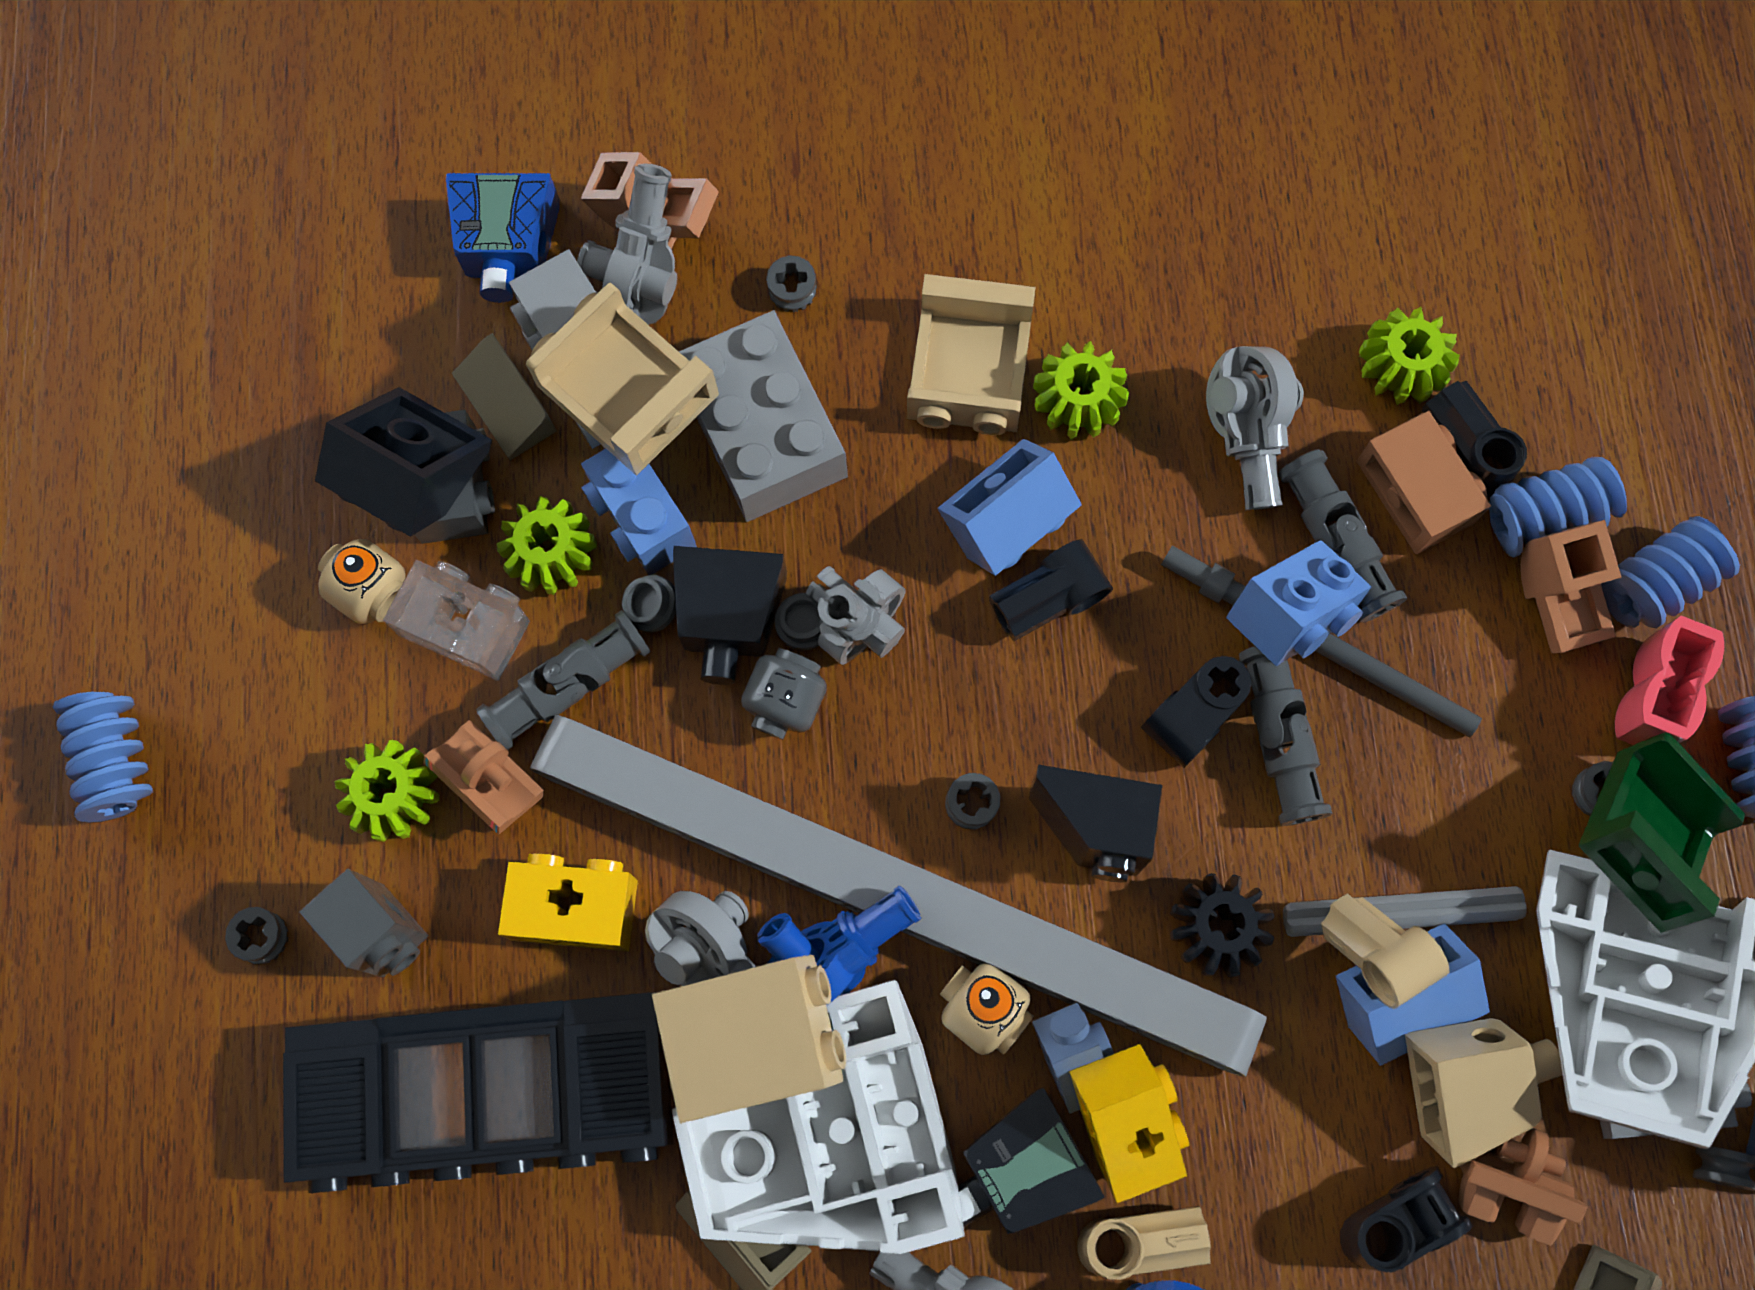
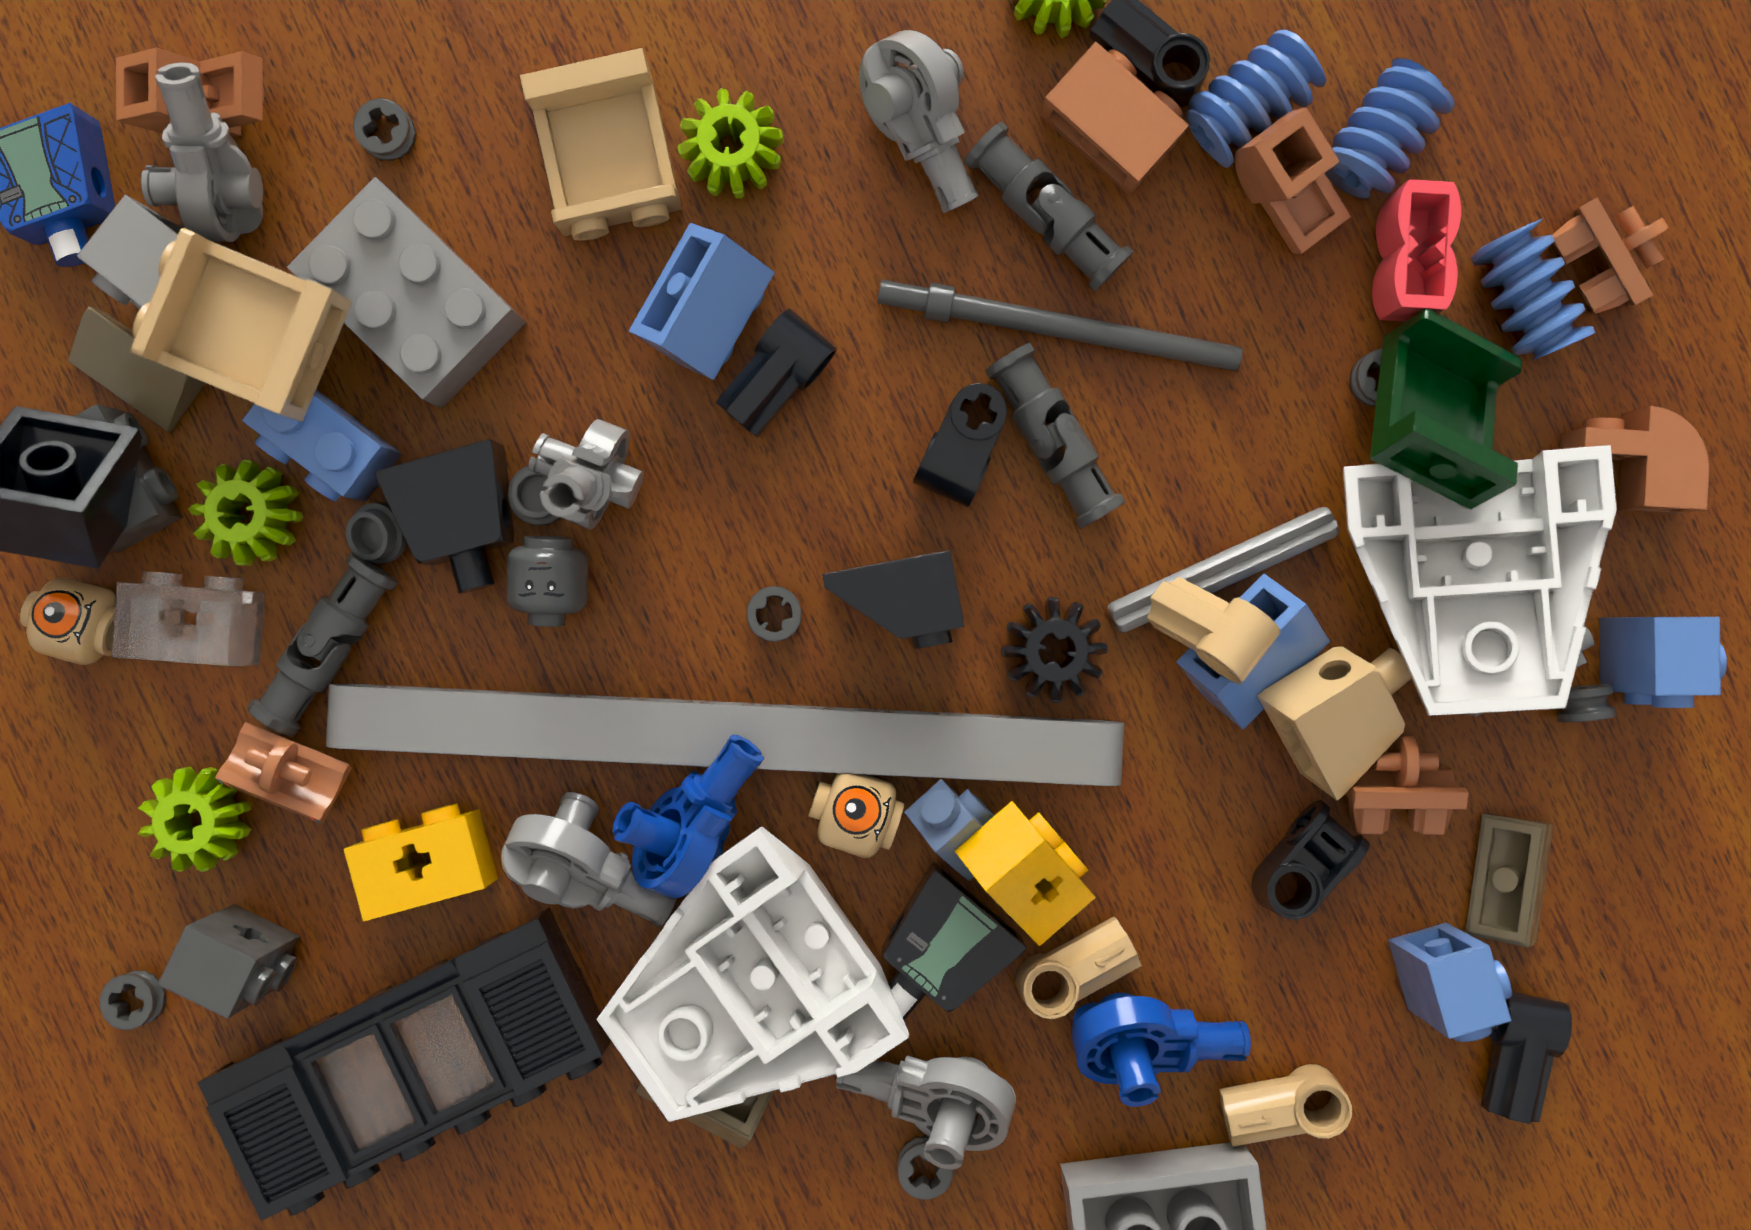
camera: 25 degrees left, 15 degrees up
(749, 1038) = (641, 940): tan panel -> none
(1299, 603) = (1026, 301): medium blue brick -> none

